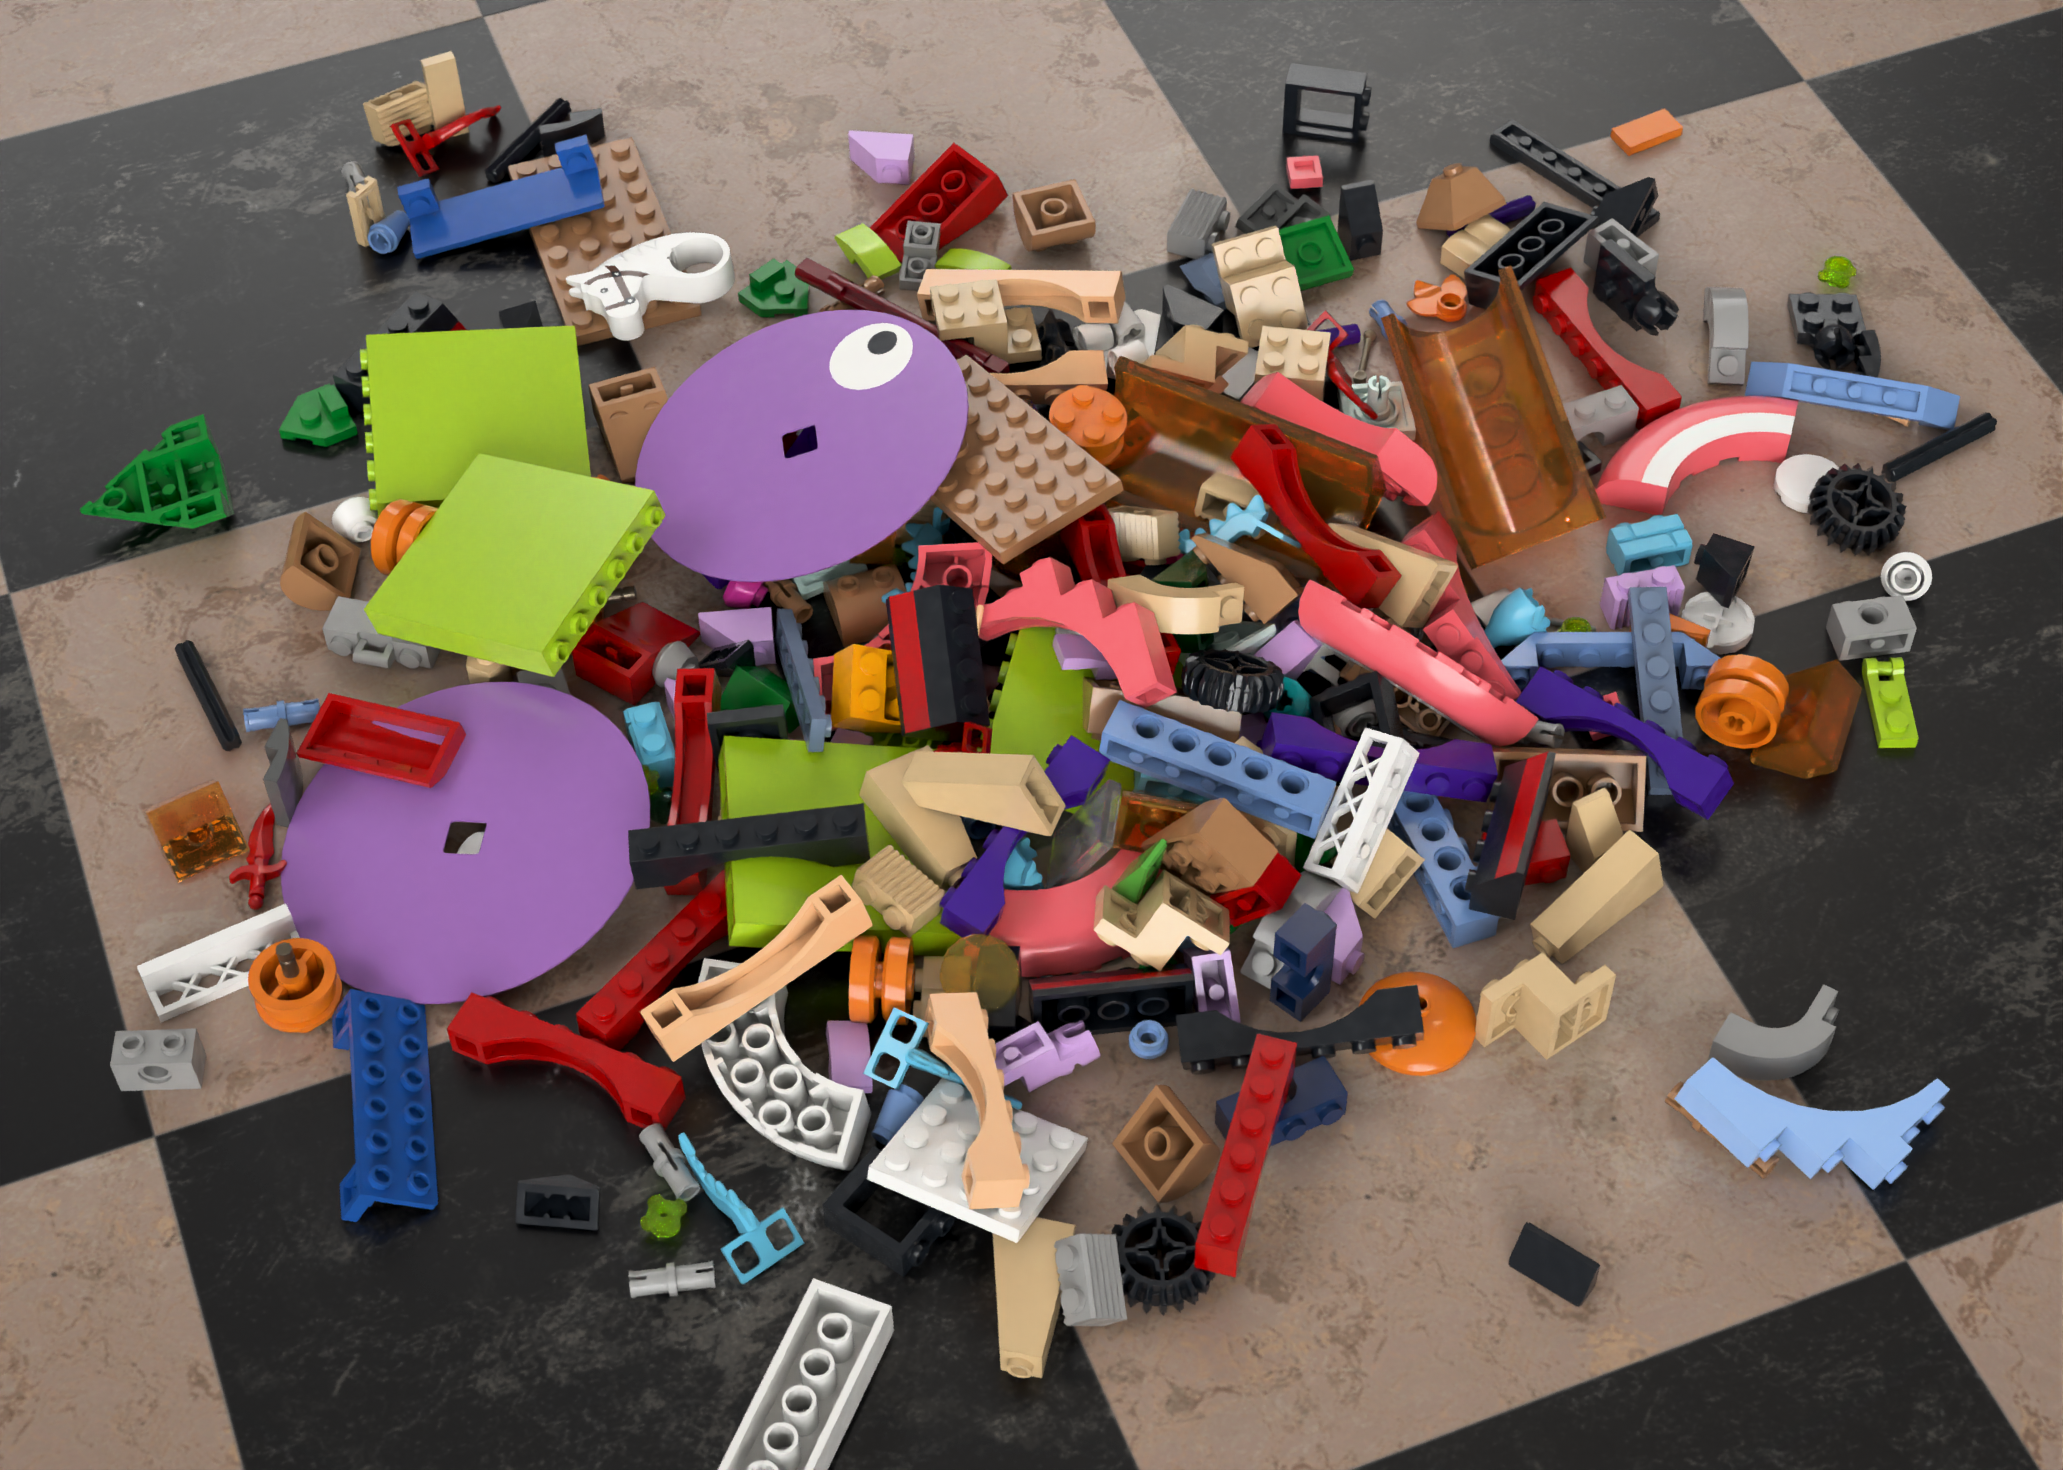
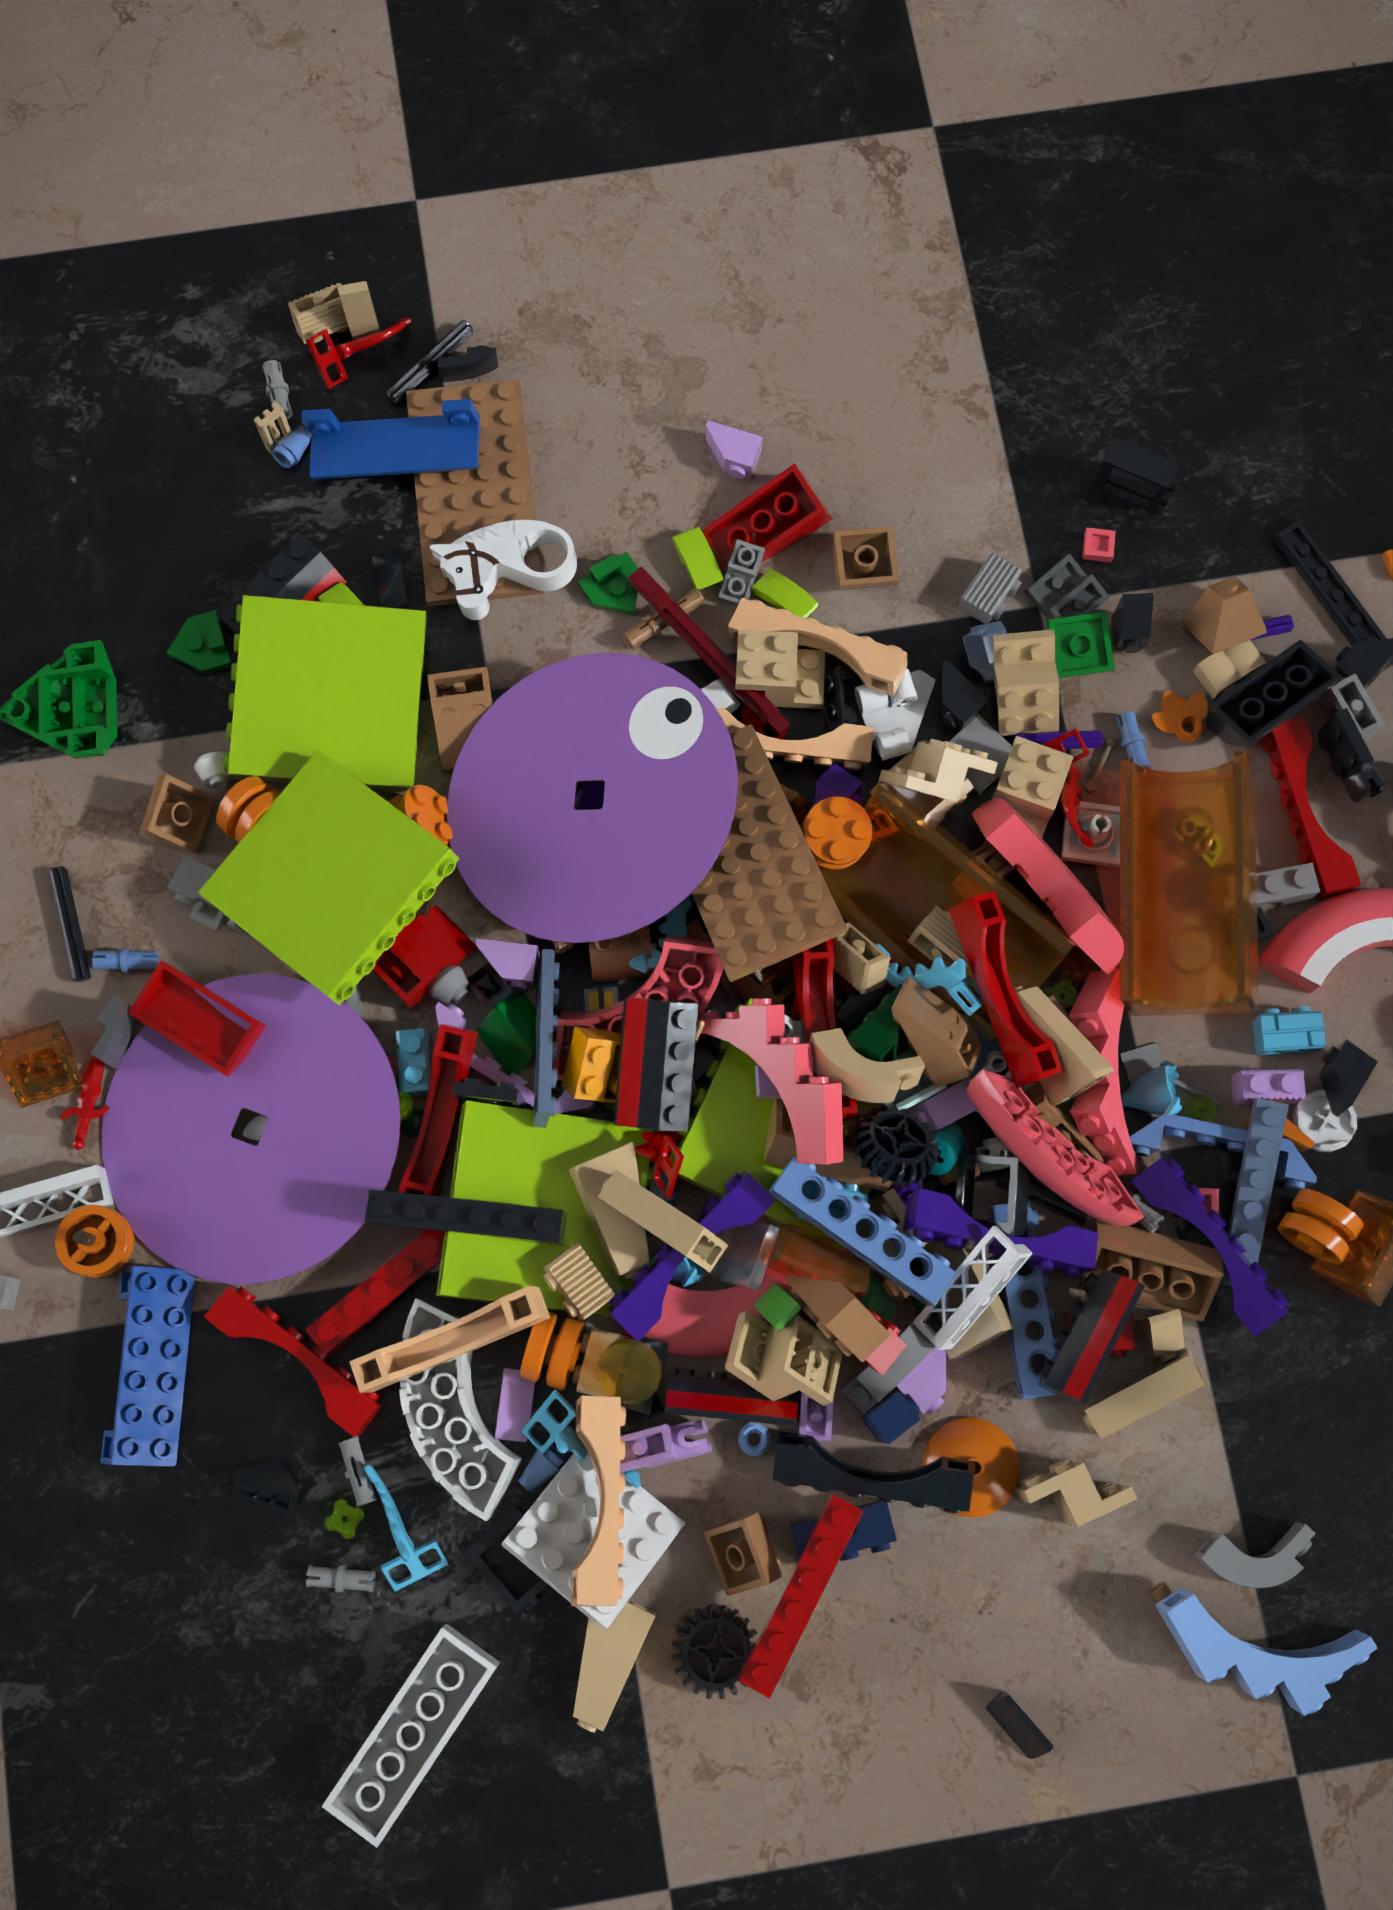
camera: 10 degrees right, 25 degrees up
(1090, 1280) = (655, 1670): light grey brick -> none

